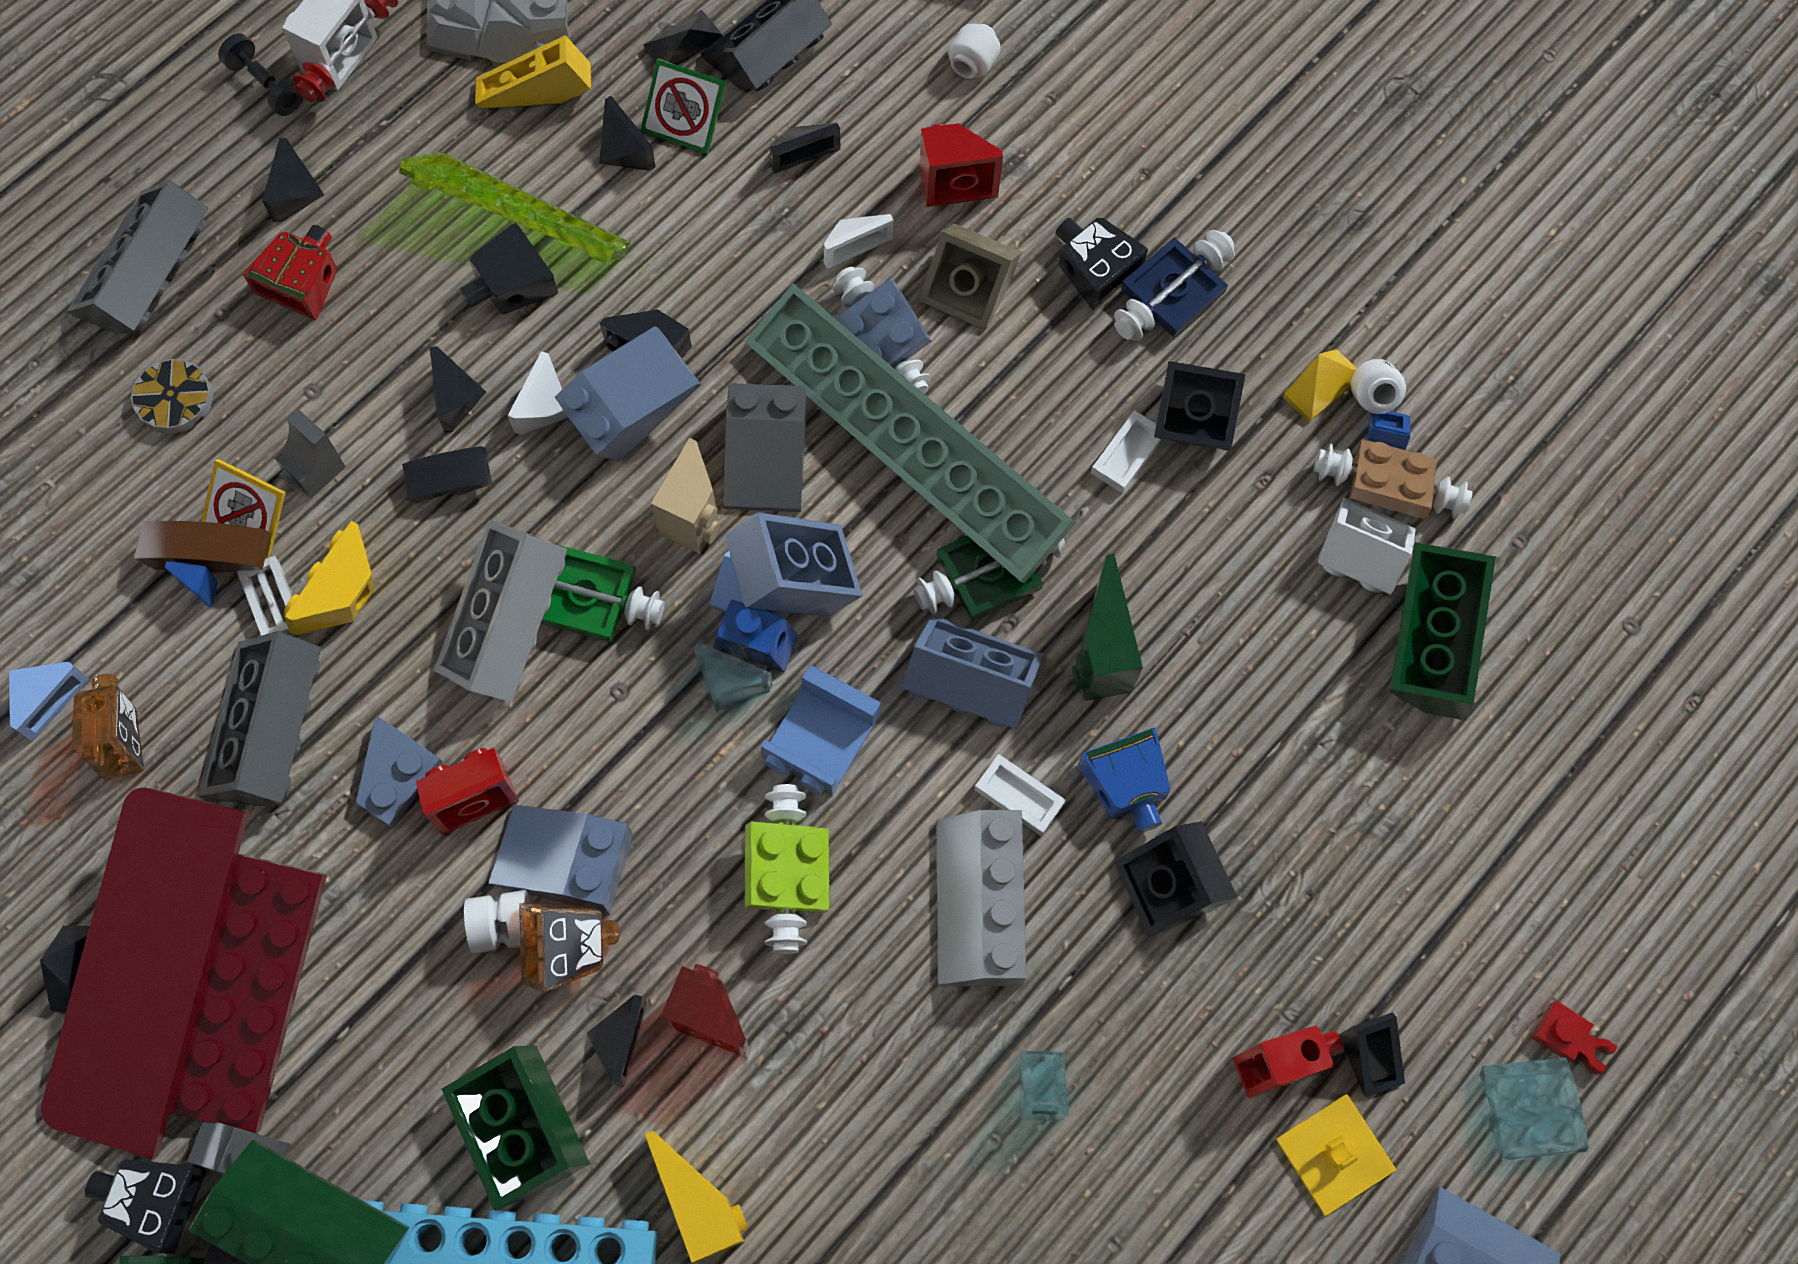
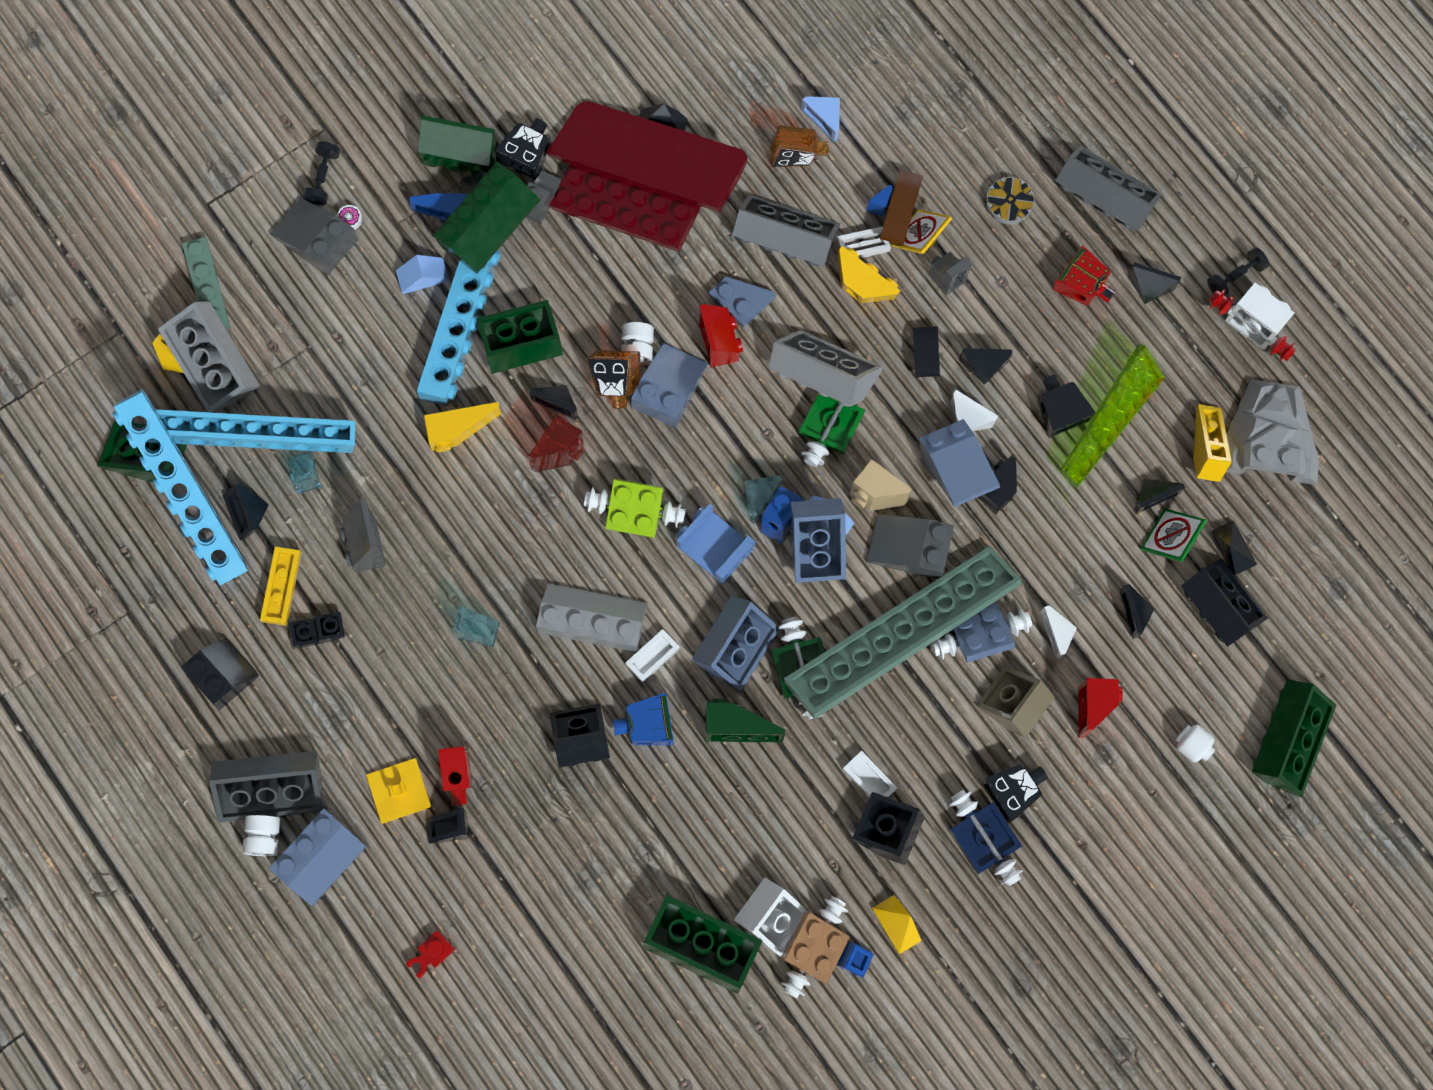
camera: 100 degrees right, 5 degrees up
(1378, 386) = (883, 955): white head -> none
(1534, 1109) = (395, 915): clear light blue slope -> none

